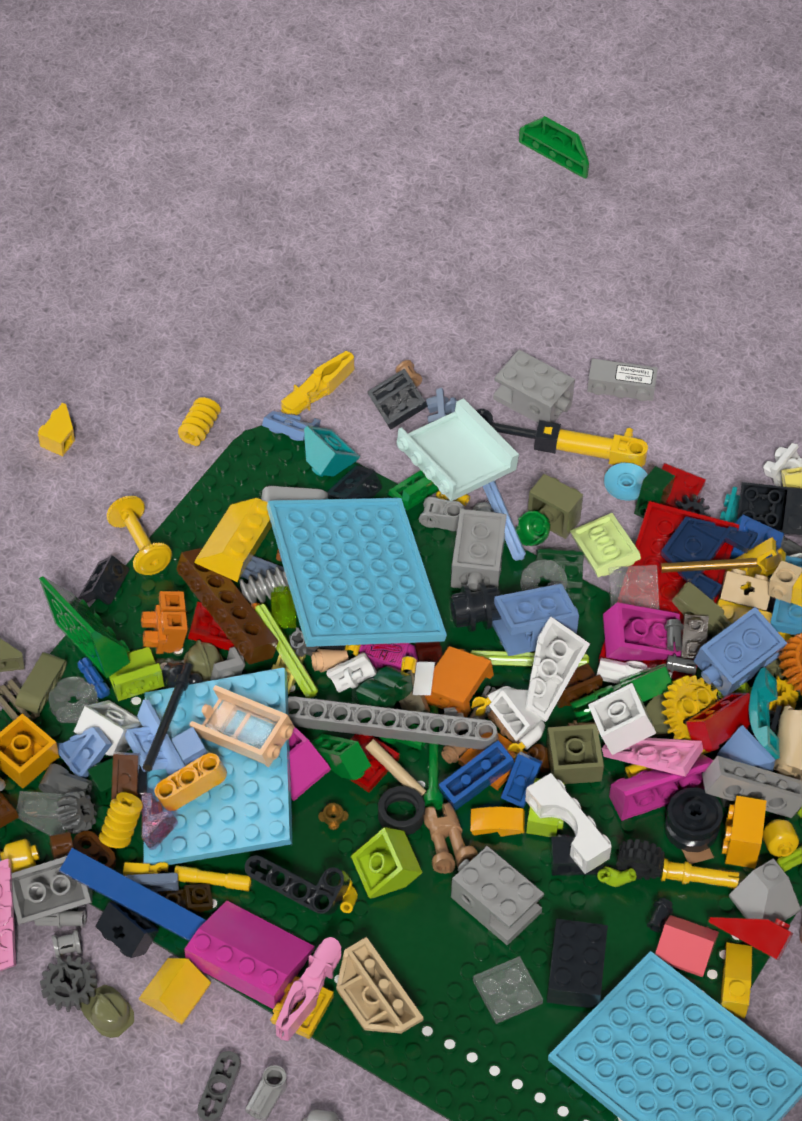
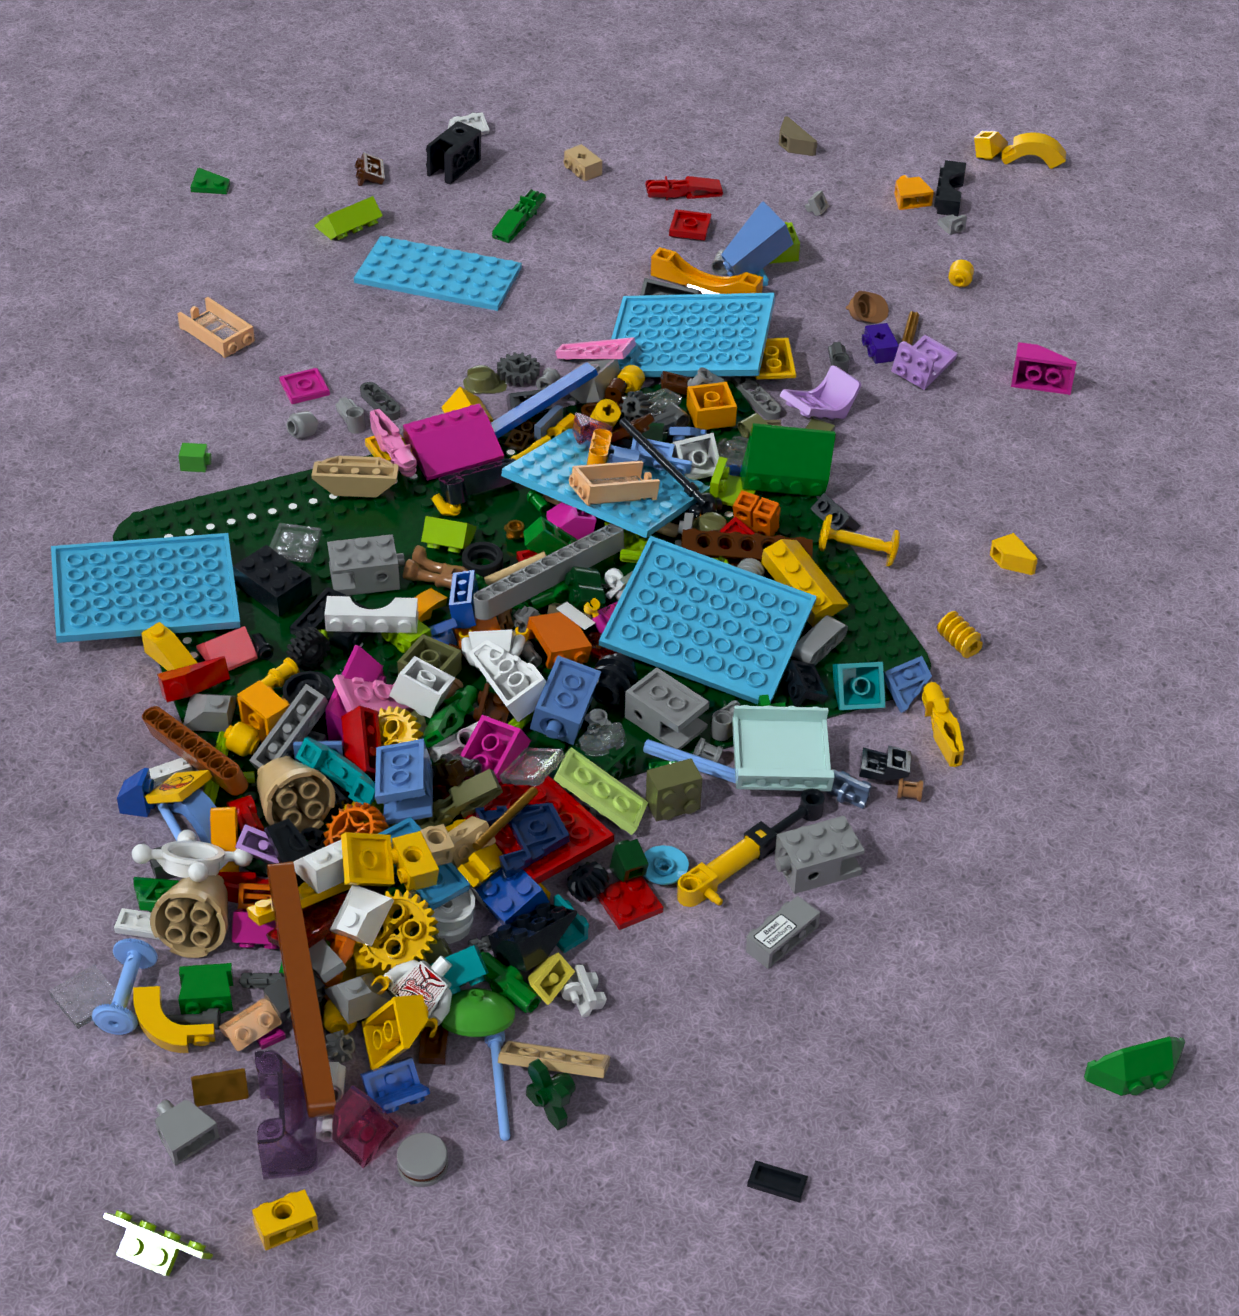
camera: 125 degrees right, 10 degrees down
(581, 898) = (314, 614): none -> black plate

